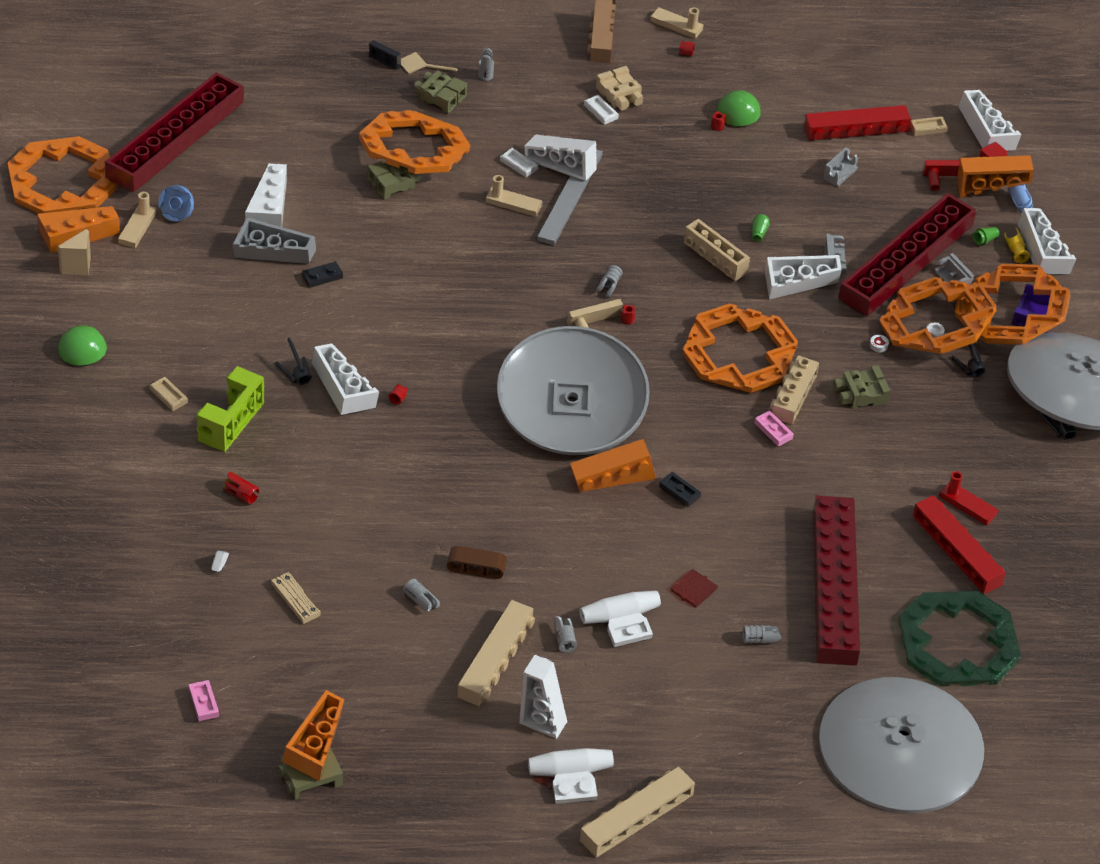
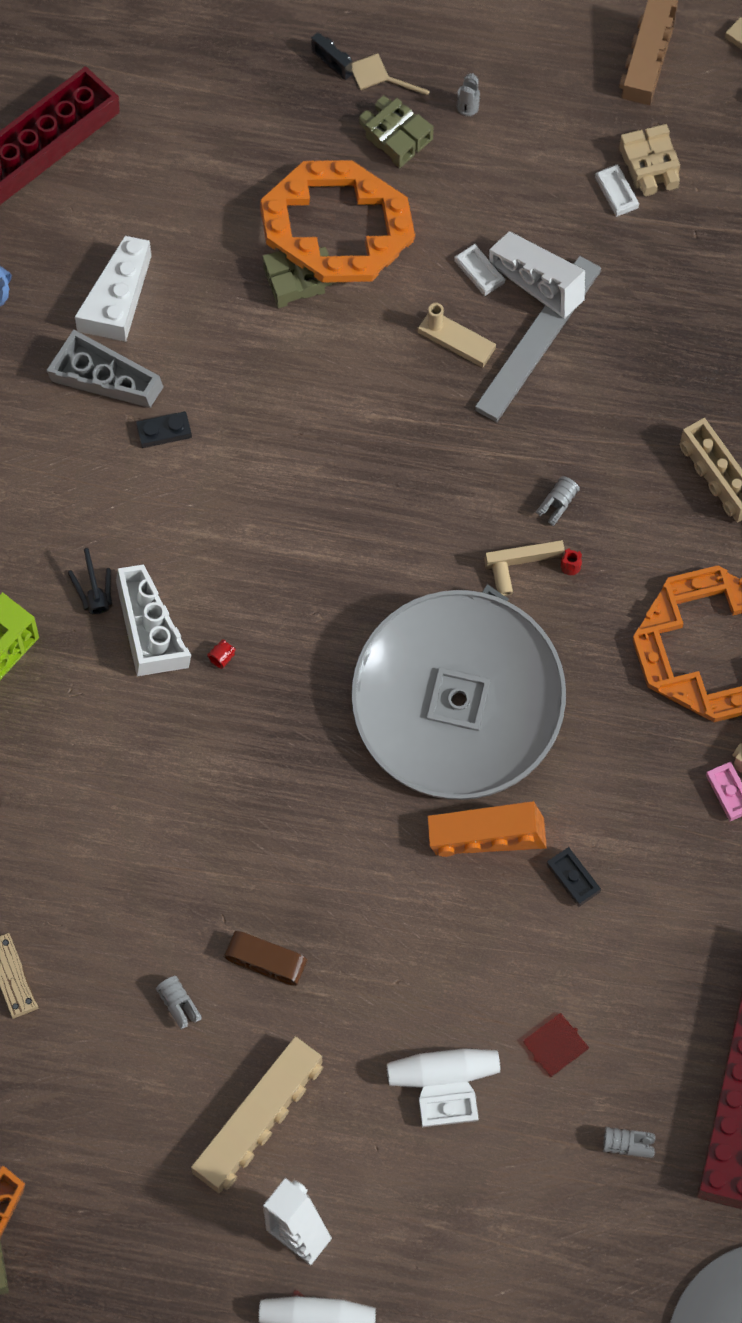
camera: 15 degrees right, 20 degrees up
(565, 634) = (359, 1100): light grey hinge -> none

